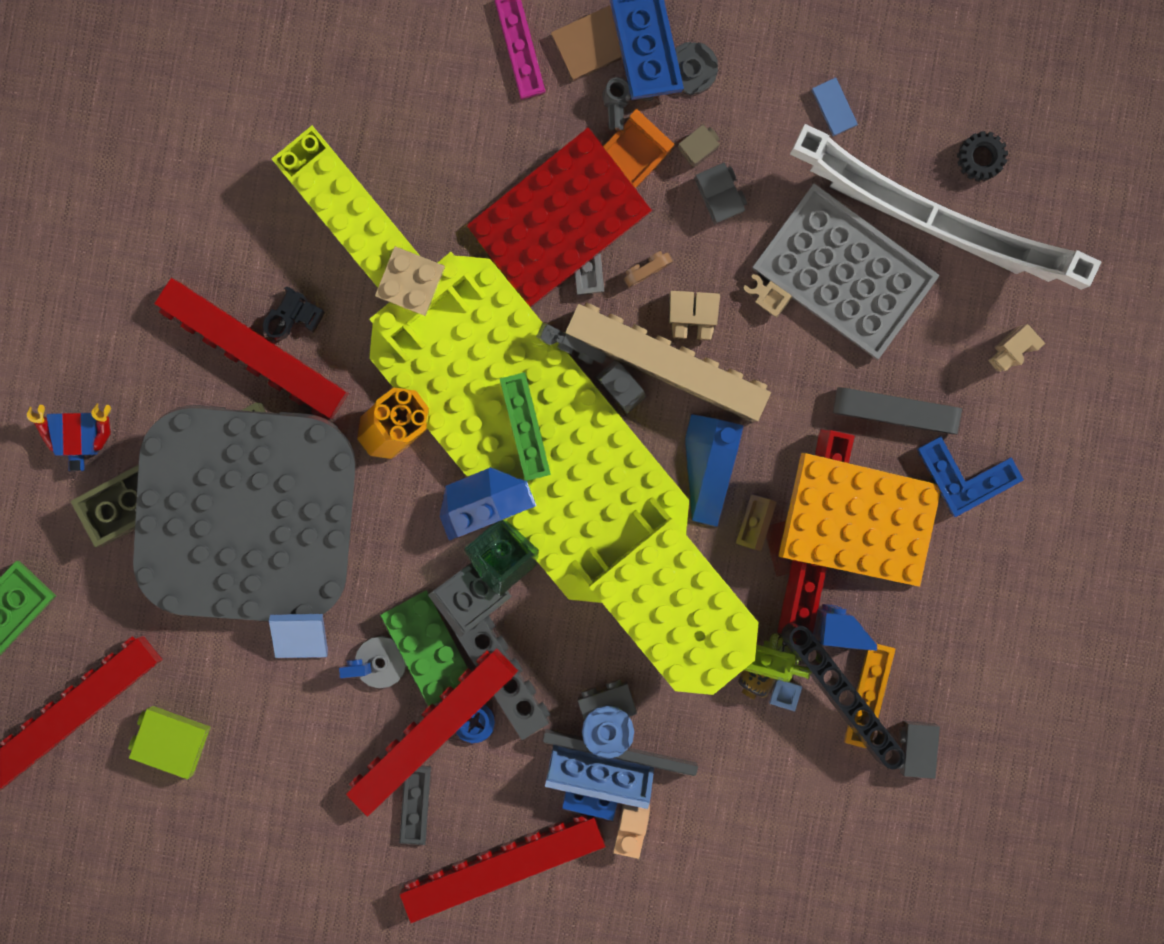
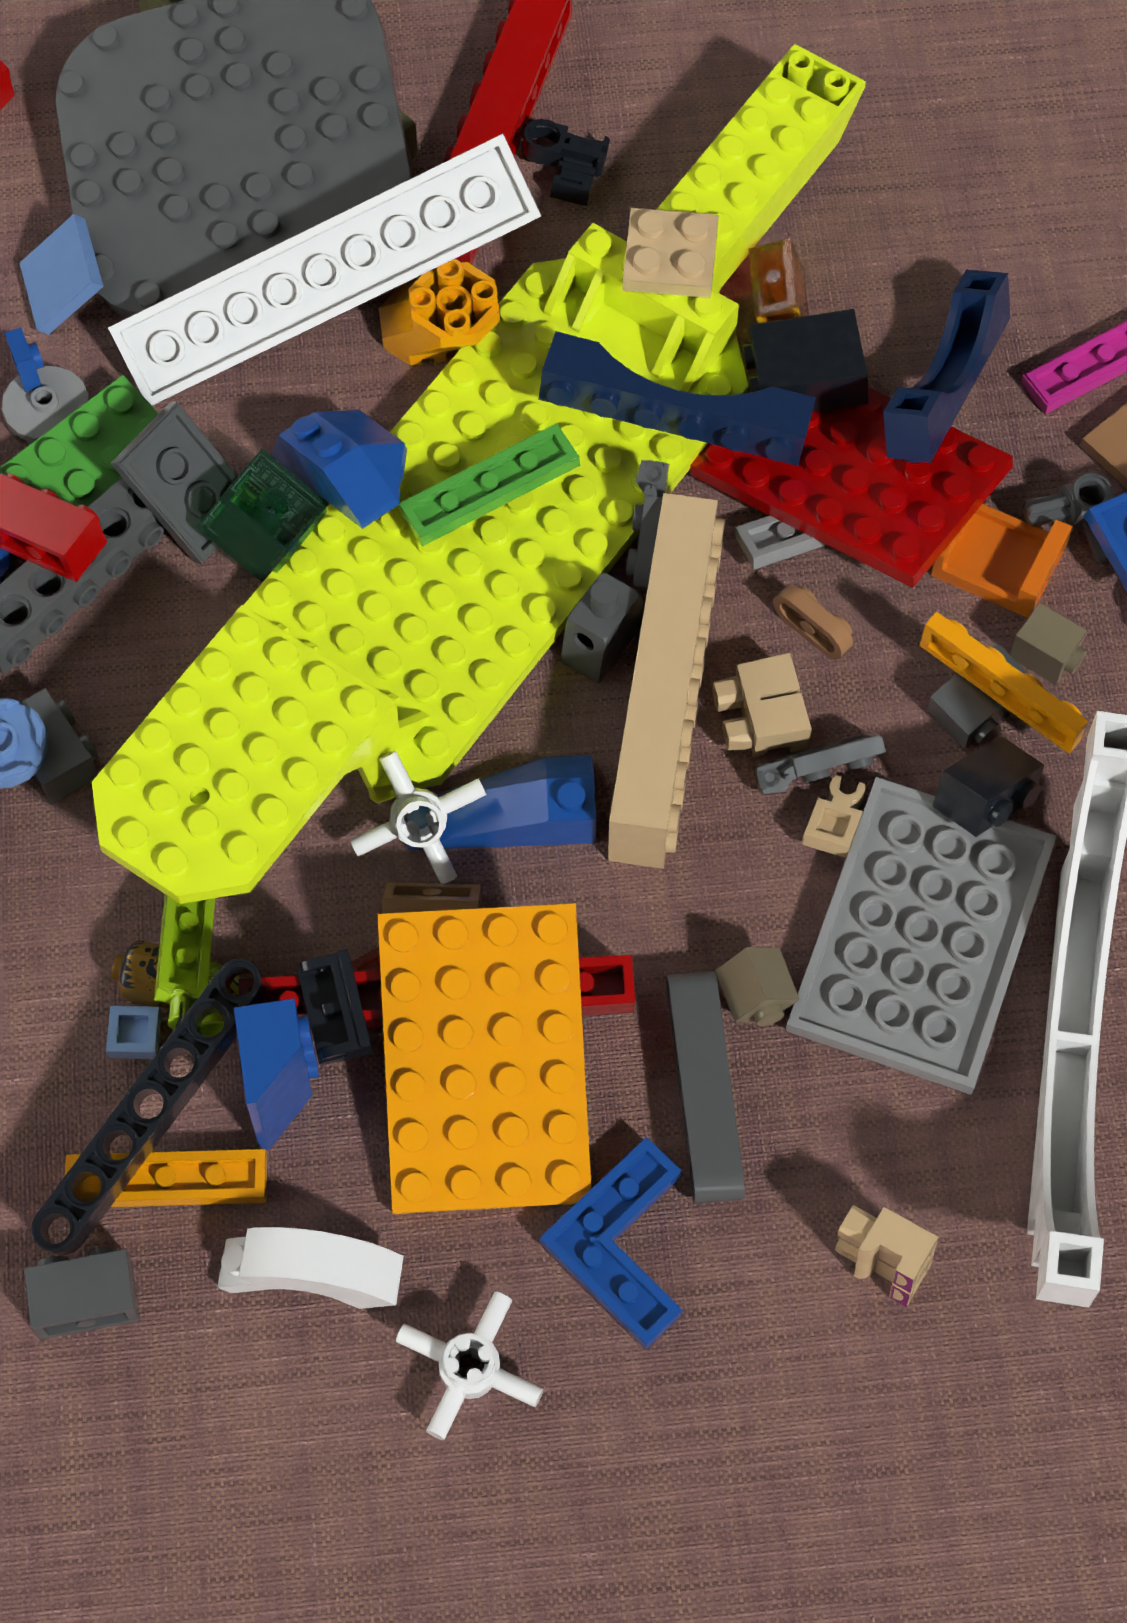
camera: 75 degrees right, 25 degrees down
(360, 482) = (326, 270): none -> white plate
(431, 220) = (778, 282): none -> clear orange brick
(473, 353) = (759, 423): none -> dark blue arch
(492, 222) = (811, 357): none -> black brick
(541, 157) = (923, 414): none -> dark blue arch
(713, 518) = (407, 801): none -> white bar
(732, 293) = (815, 762): none -> dark grey hinge
(736, 175) = (1001, 681): none -> light orange plate
(779, 209) = (988, 786): none -> black brick
(820, 590) = (334, 1008): none -> black hinge
(855, 367) = (757, 985): none -> dark tan brick
(943, 635) = (312, 1263): none -> white arch
(1000, 570) = (477, 1382): none -> white bar

